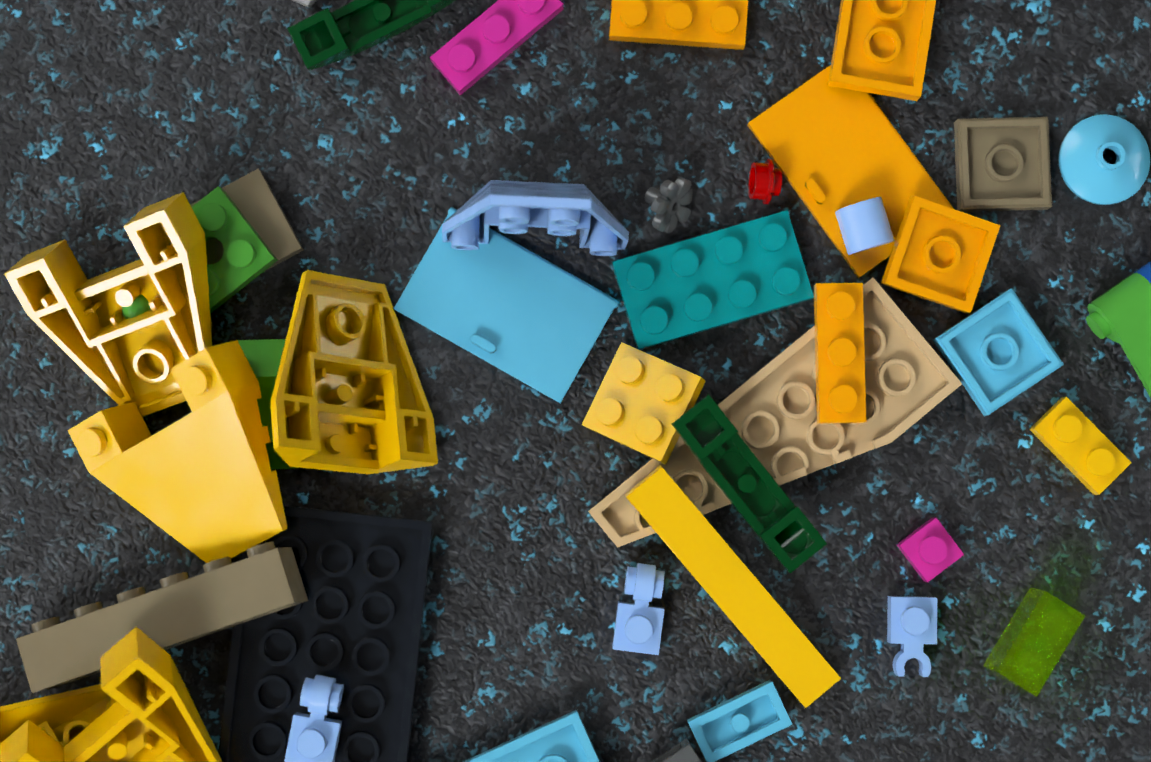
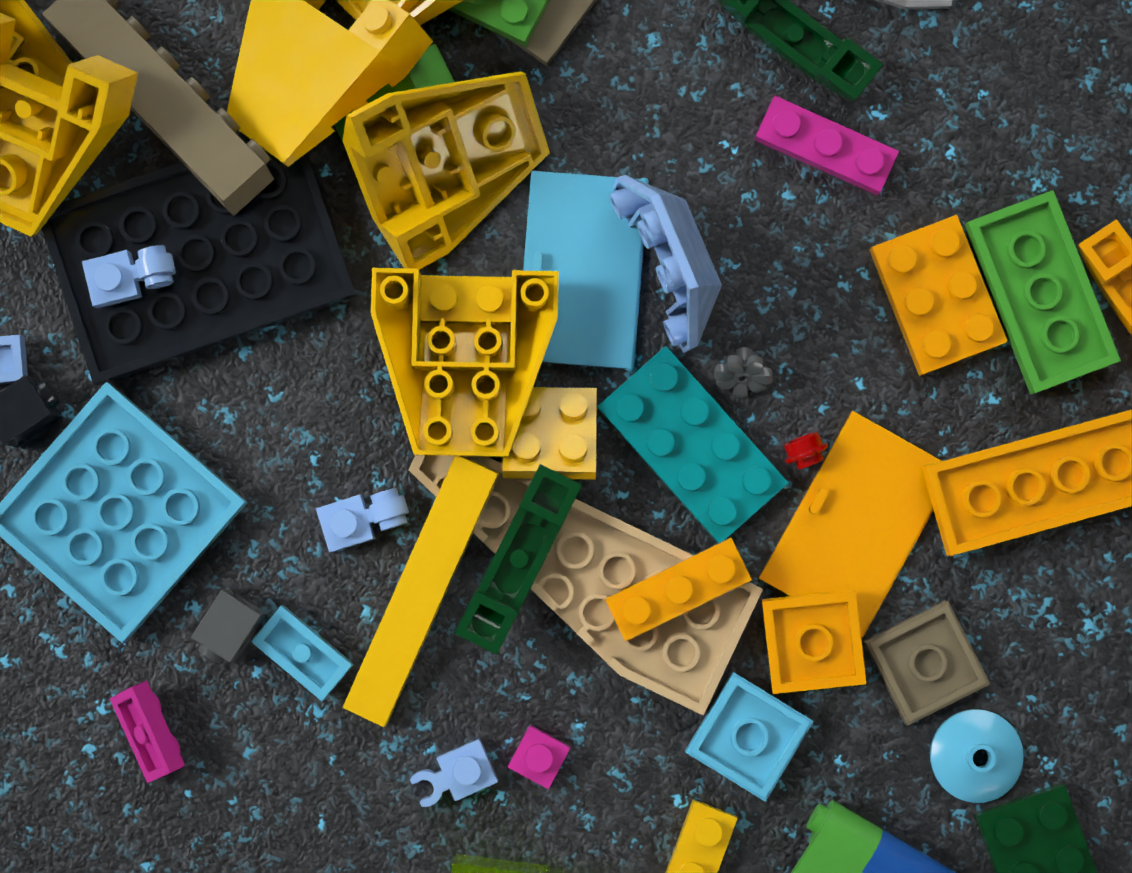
camera: 70 degrees right, 0 degrees up
(536, 446) = (463, 353): none -> yellow wedge
(864, 225) = (807, 559): light blue brick -> none

